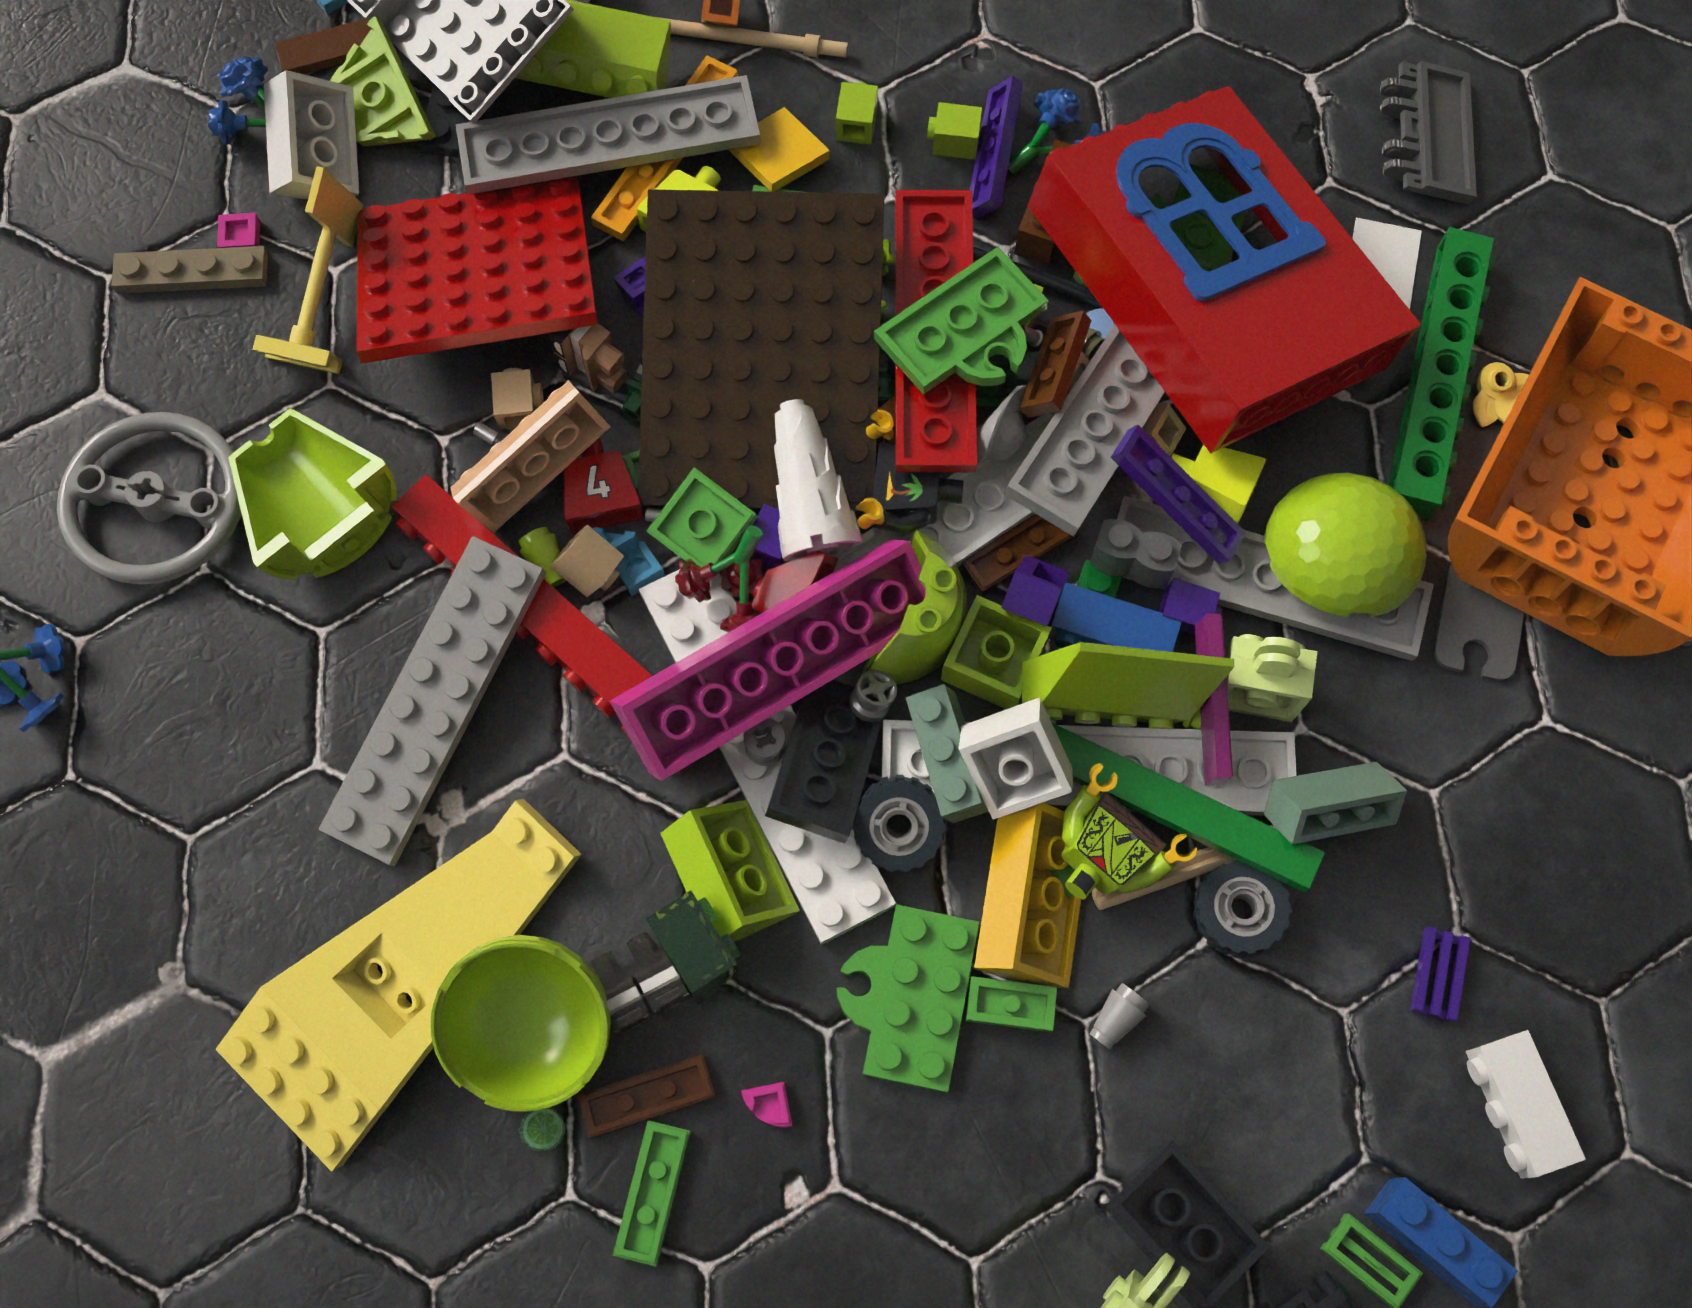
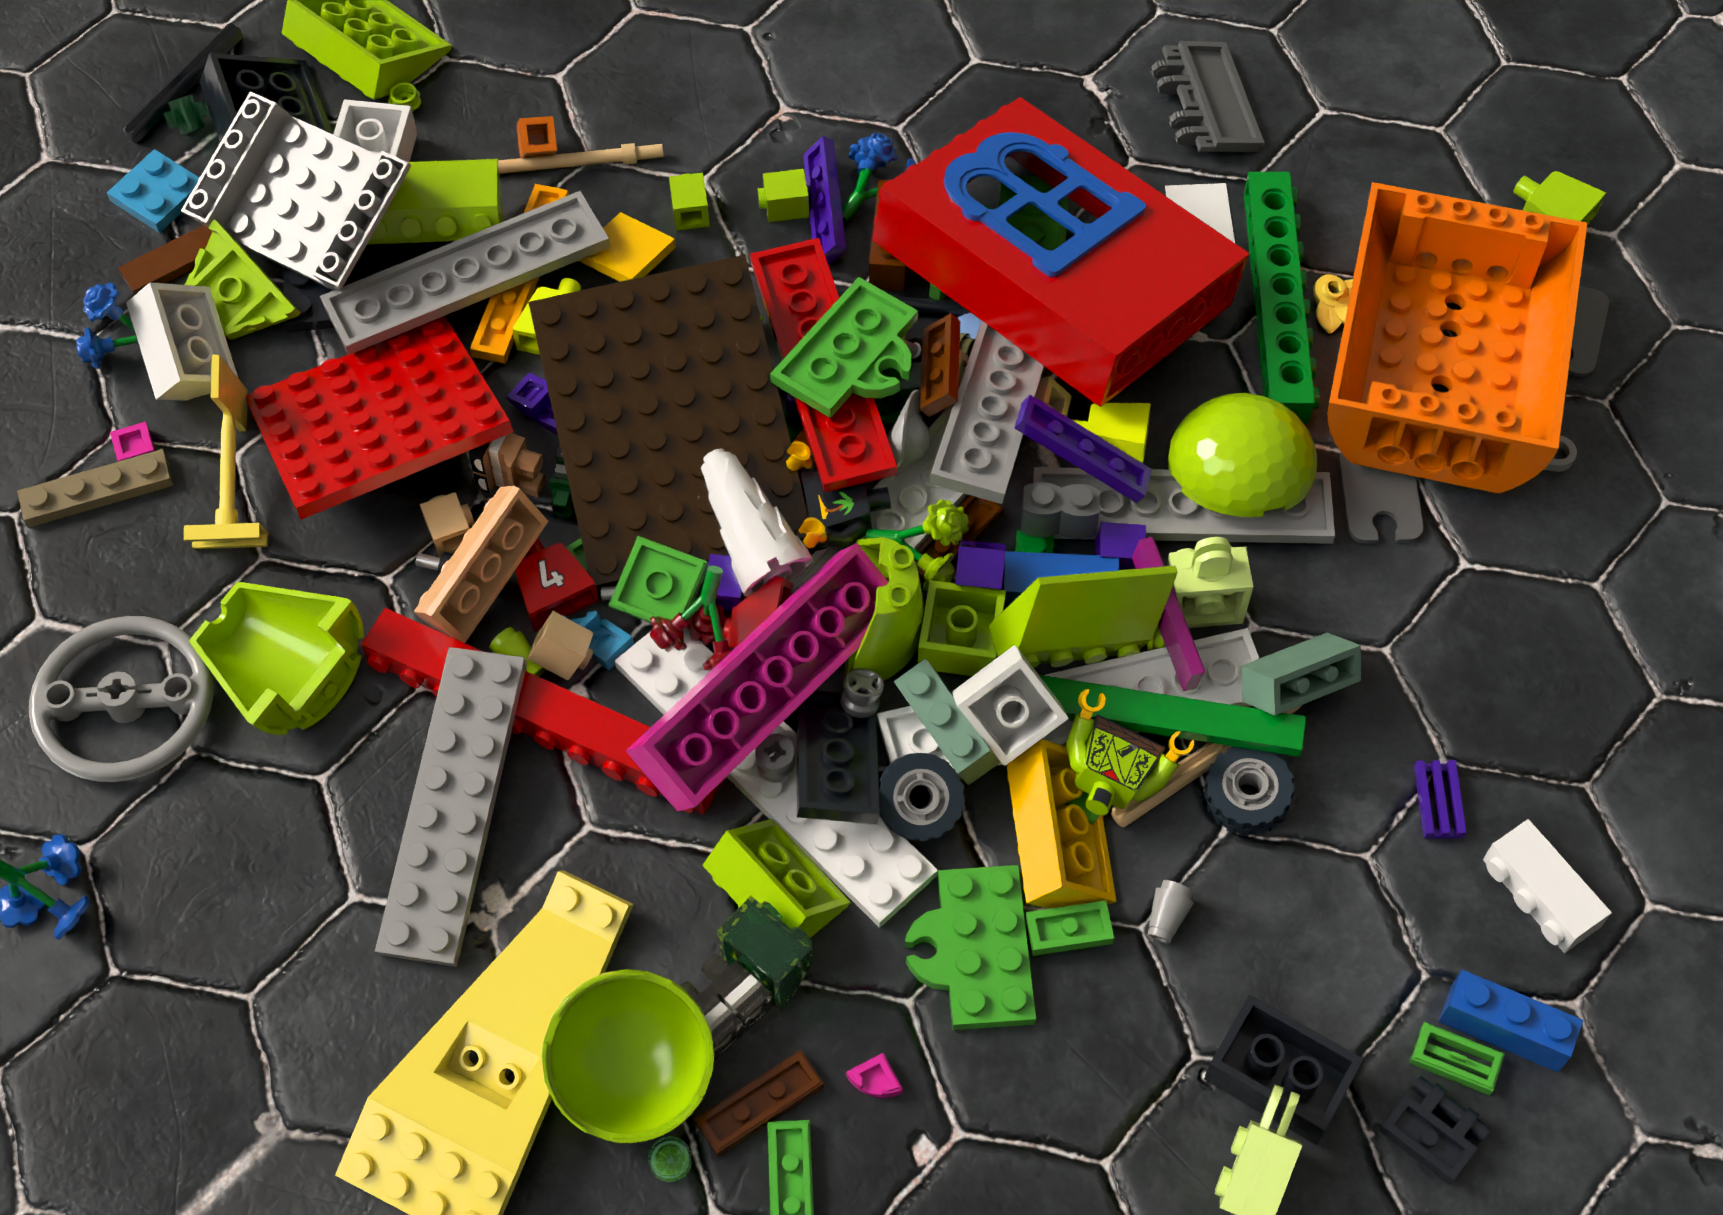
camera: 15 degrees left, 10 degrees down
(1006, 543) = (945, 524): none -> lime plant

